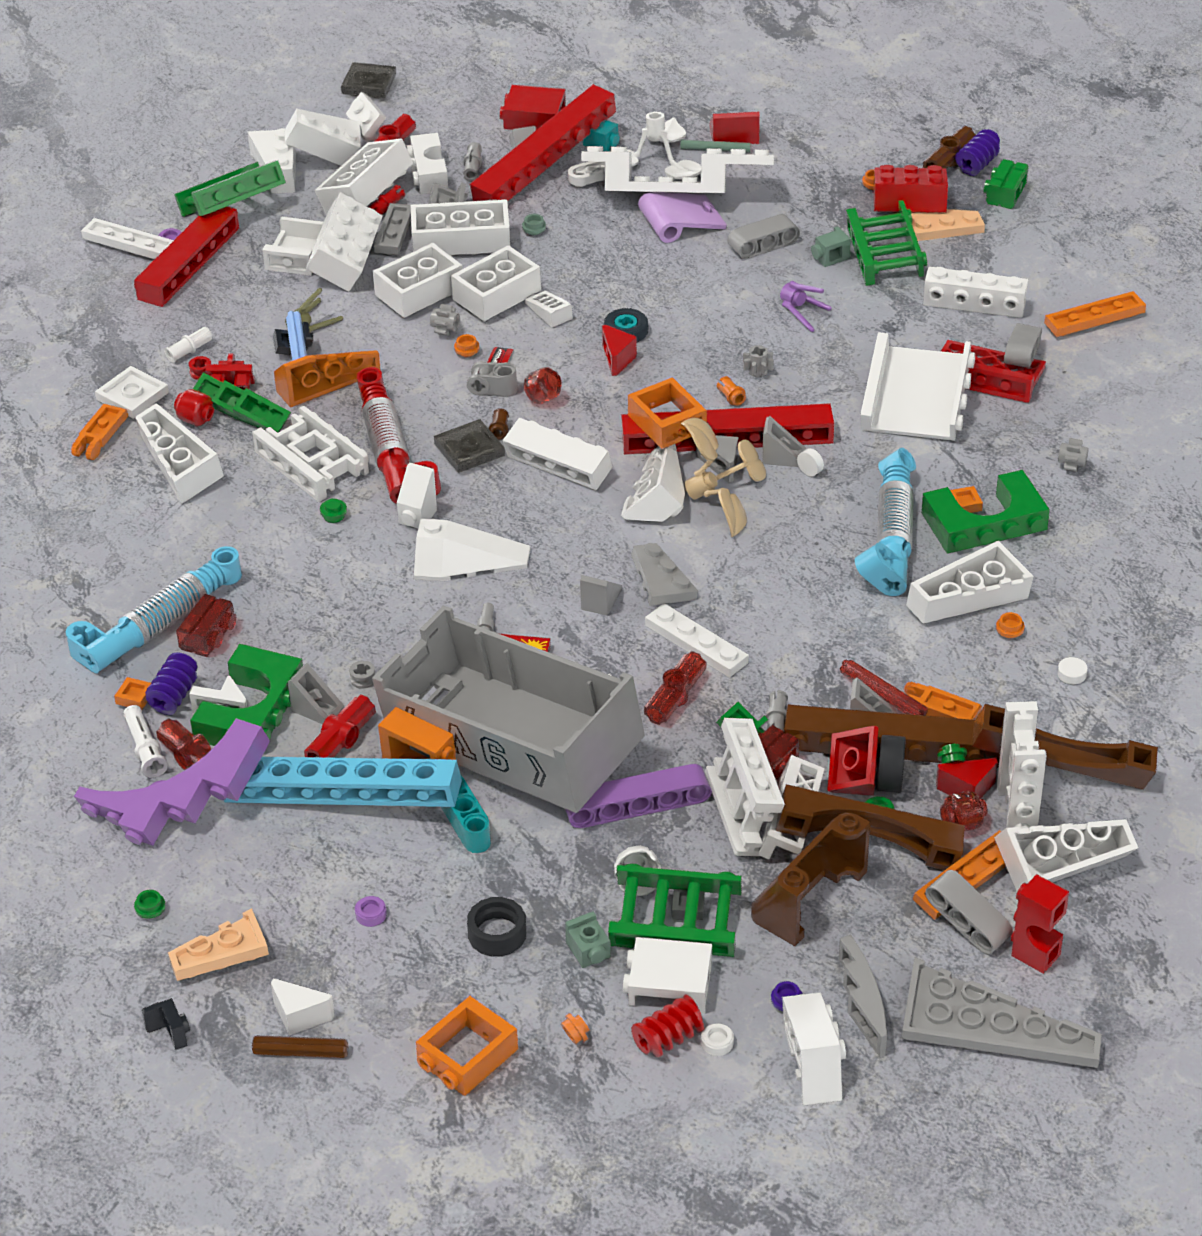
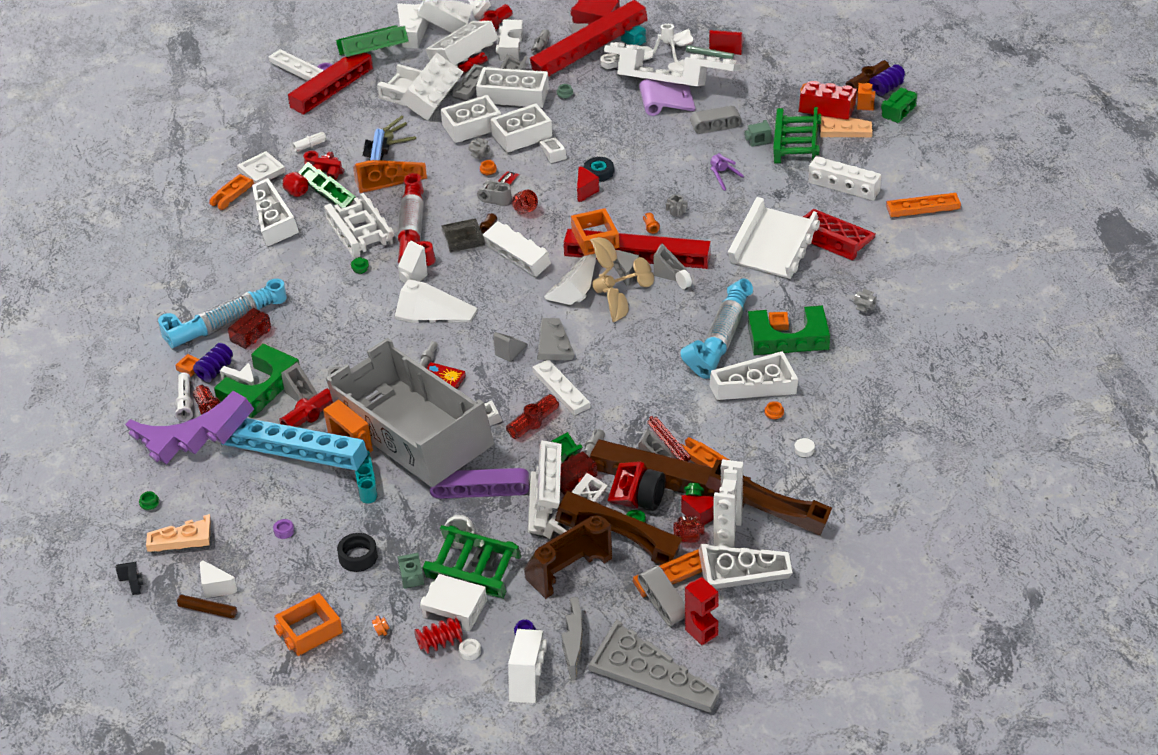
camera: 15 degrees right, 0 degrees up
(958, 178) = (866, 97): none -> orange brick
(1023, 345) = (861, 219): light grey beam -> none

